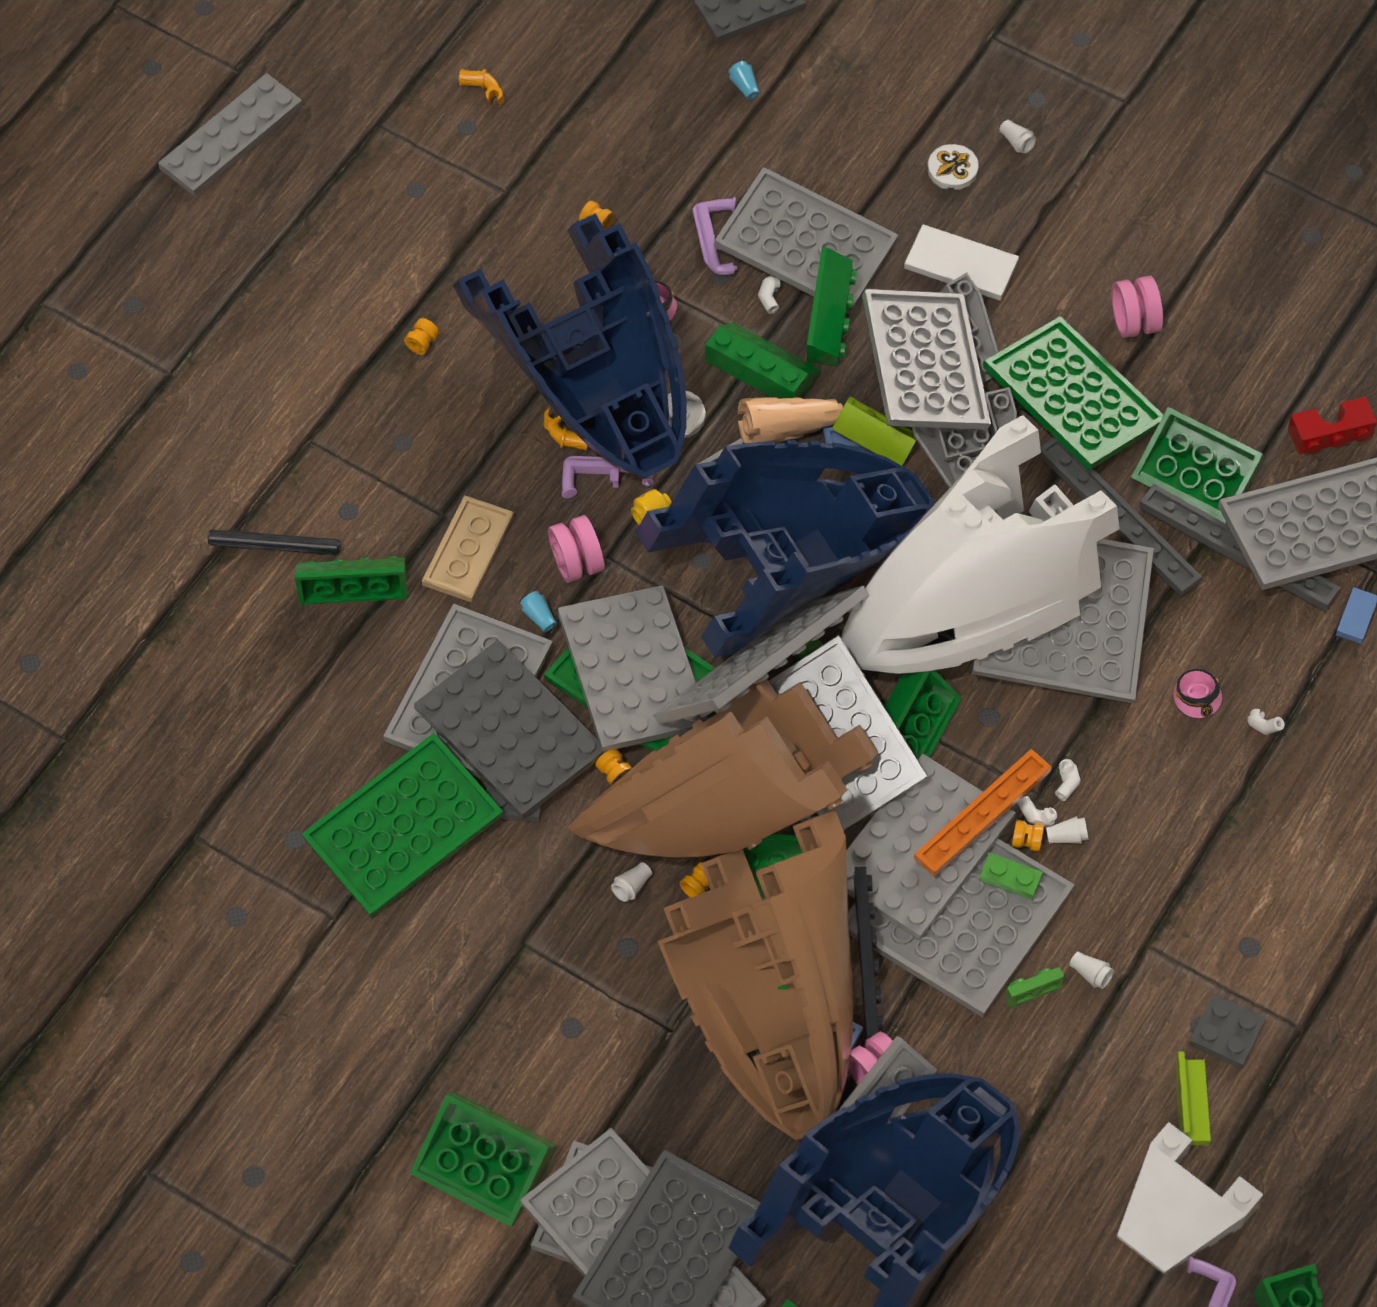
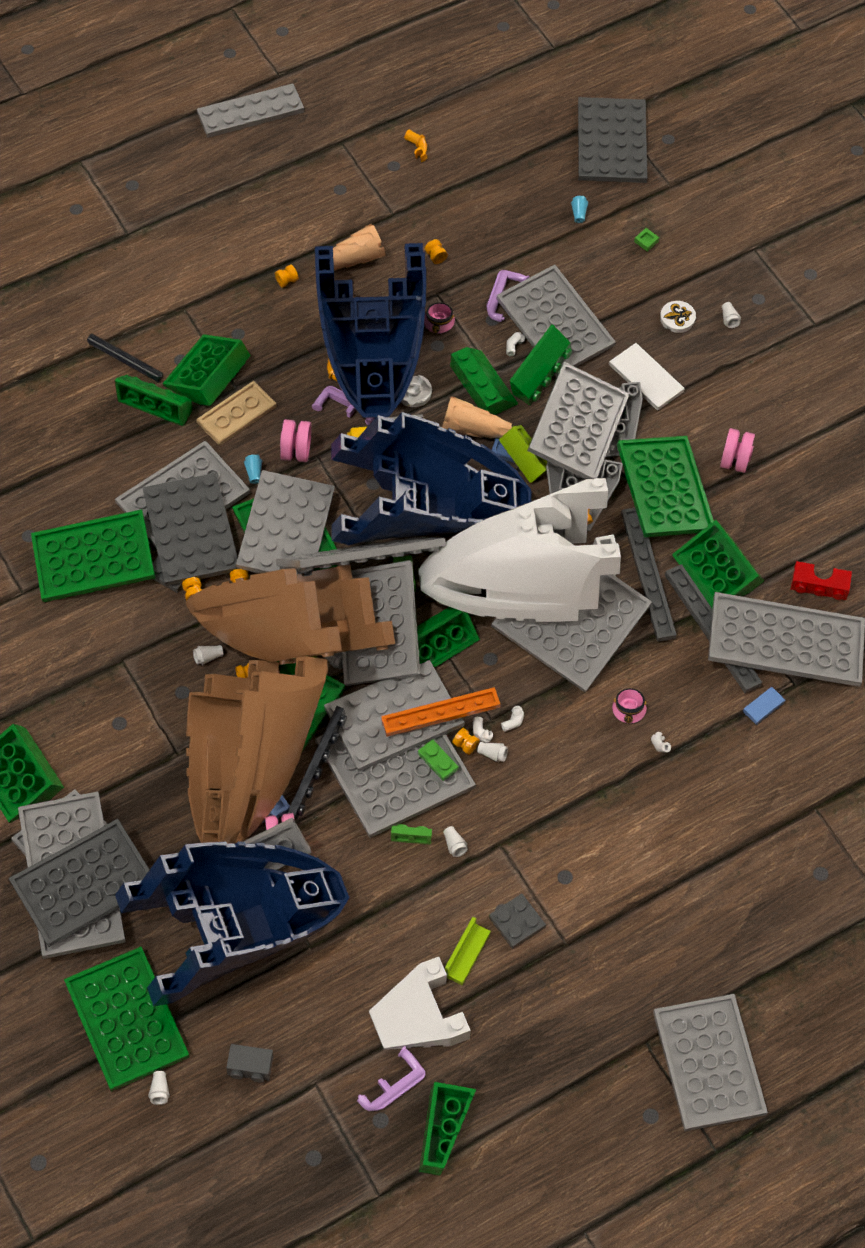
camera: 25 degrees right, 0 degrees up
(394, 506) = (207, 368): none -> green slope
(498, 255) = (359, 248): none -> light nougat cone
(561, 807) = (191, 586): none -> light orange wheel
(854, 83) = (646, 239): none -> bright green plate

